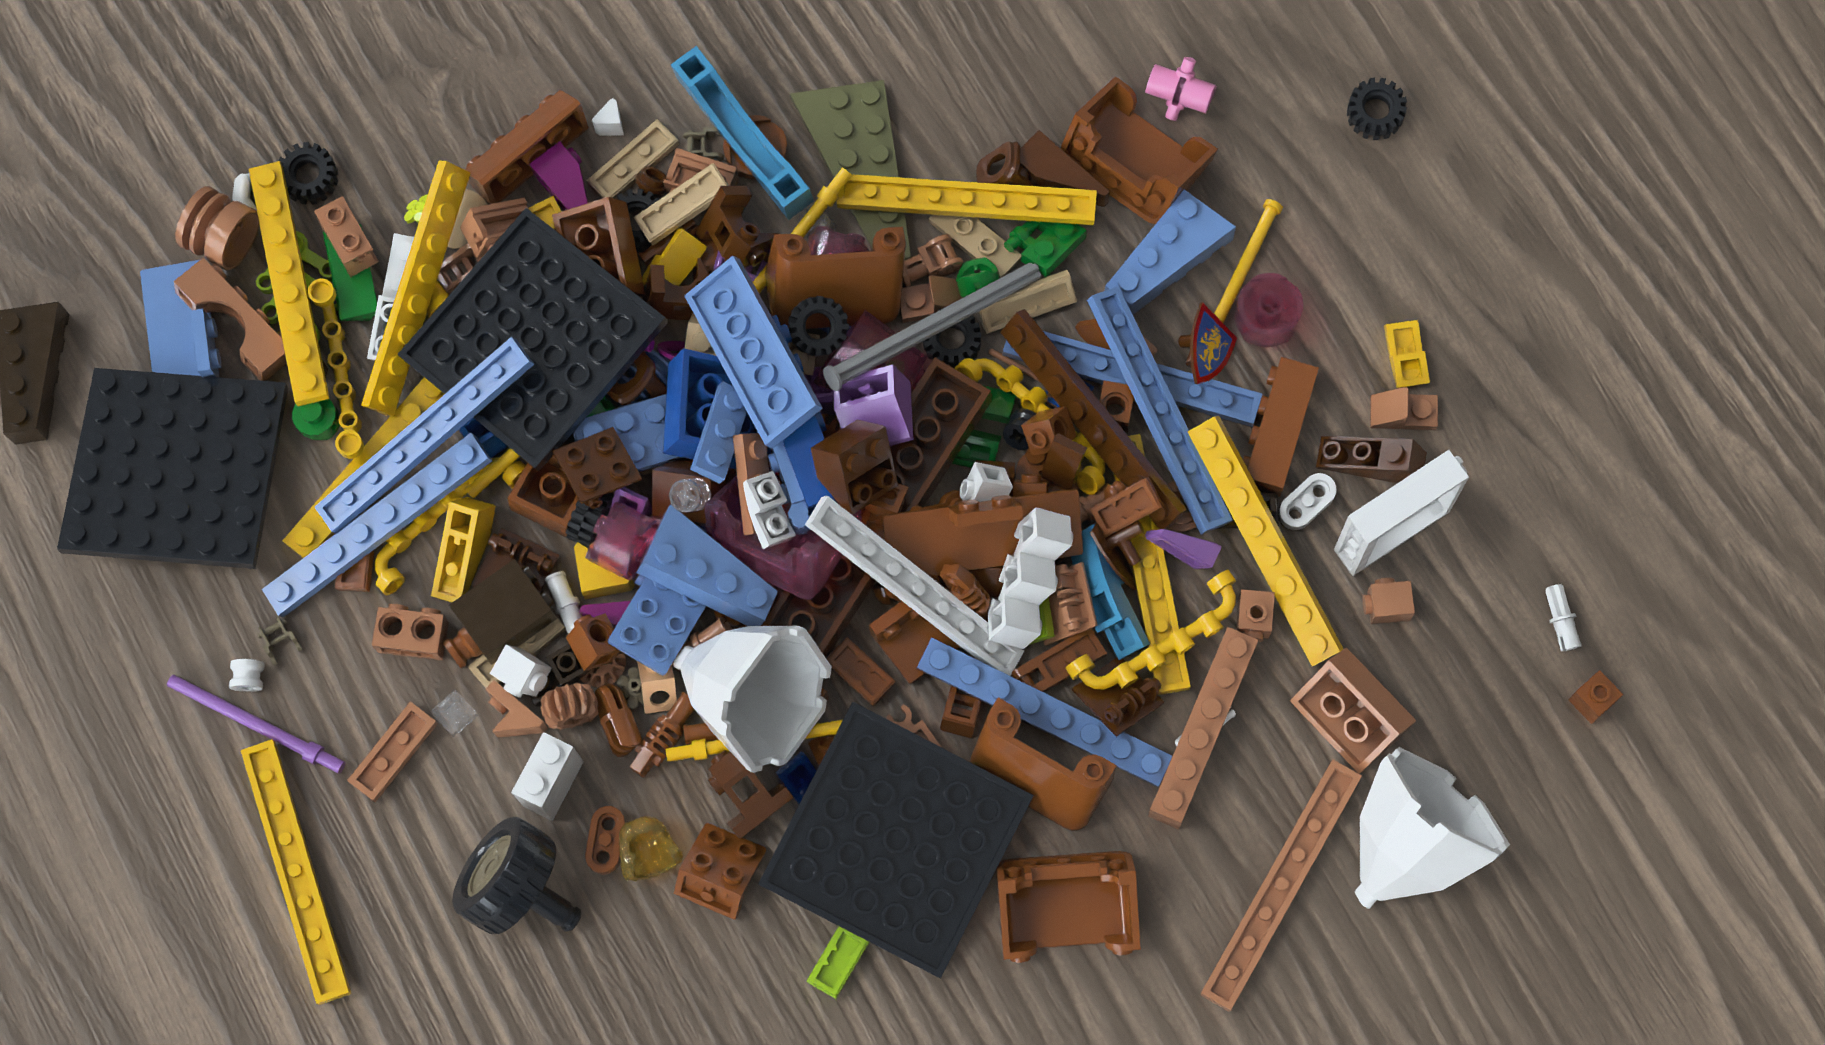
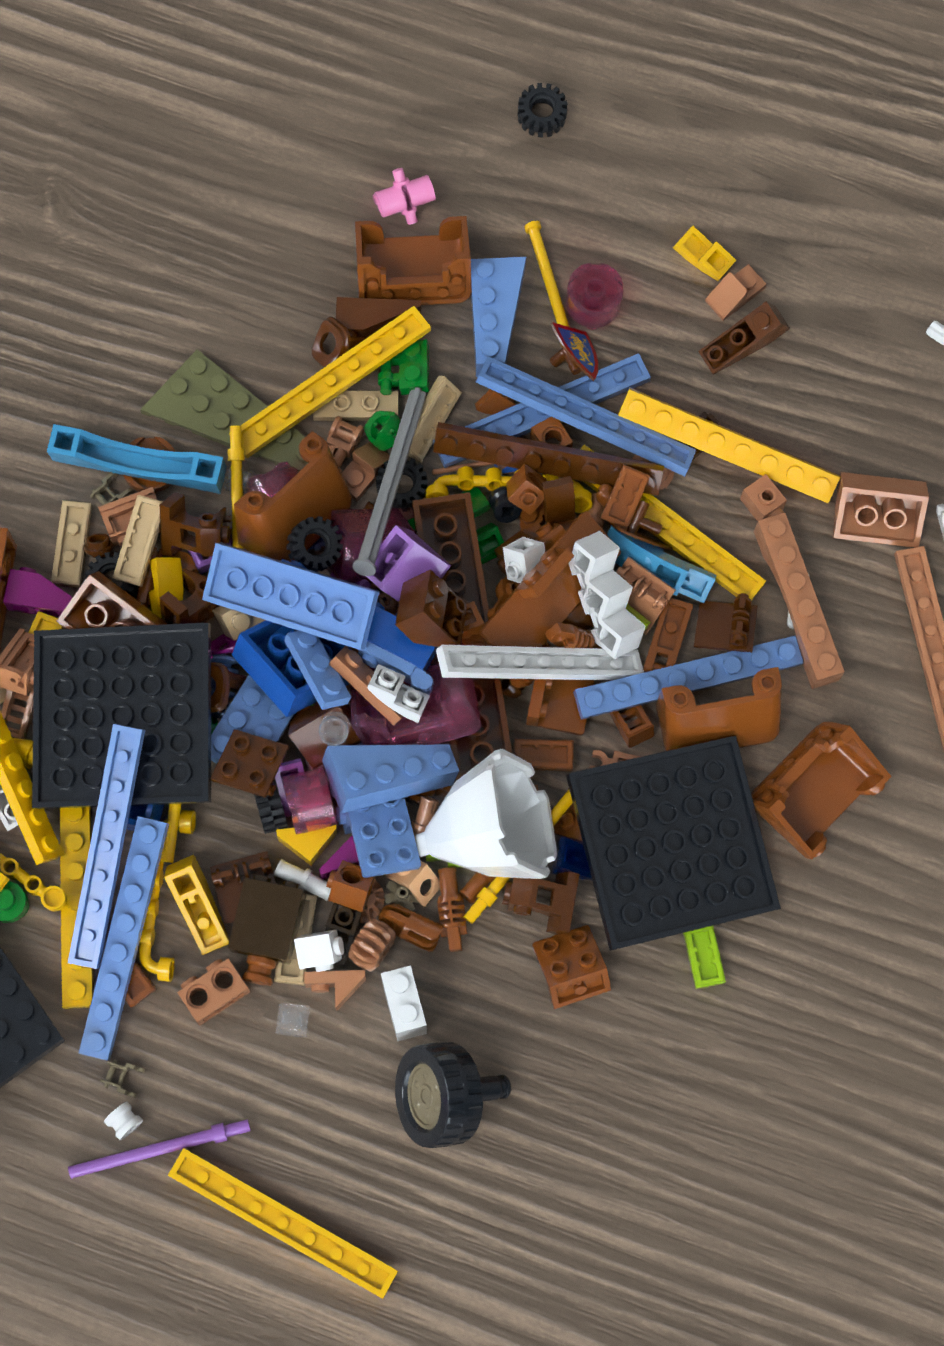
camera: 50 degrees left, 0 degrees up
(392, 752) = (275, 1083): nougat plate -> none
(544, 496) = (228, 817): dark orange brick -> none
(604, 840) = (476, 1014): dark orange plate -> none
(608, 120) = (30, 527): white slope -> none
(647, 849) = (513, 993): clear yellow hair -> none
(1153, 656) = (727, 580): yellow bar -> none
(1188, 549) = (684, 493): medium lavender slope -> none
(1281, 424) = (667, 361): dark orange brick -> none
(1306, 502) = (729, 401): white plate -> none
(1389, 601) = (839, 420): nougat brick -> none
(1401, 512) = (805, 353): white window -> none

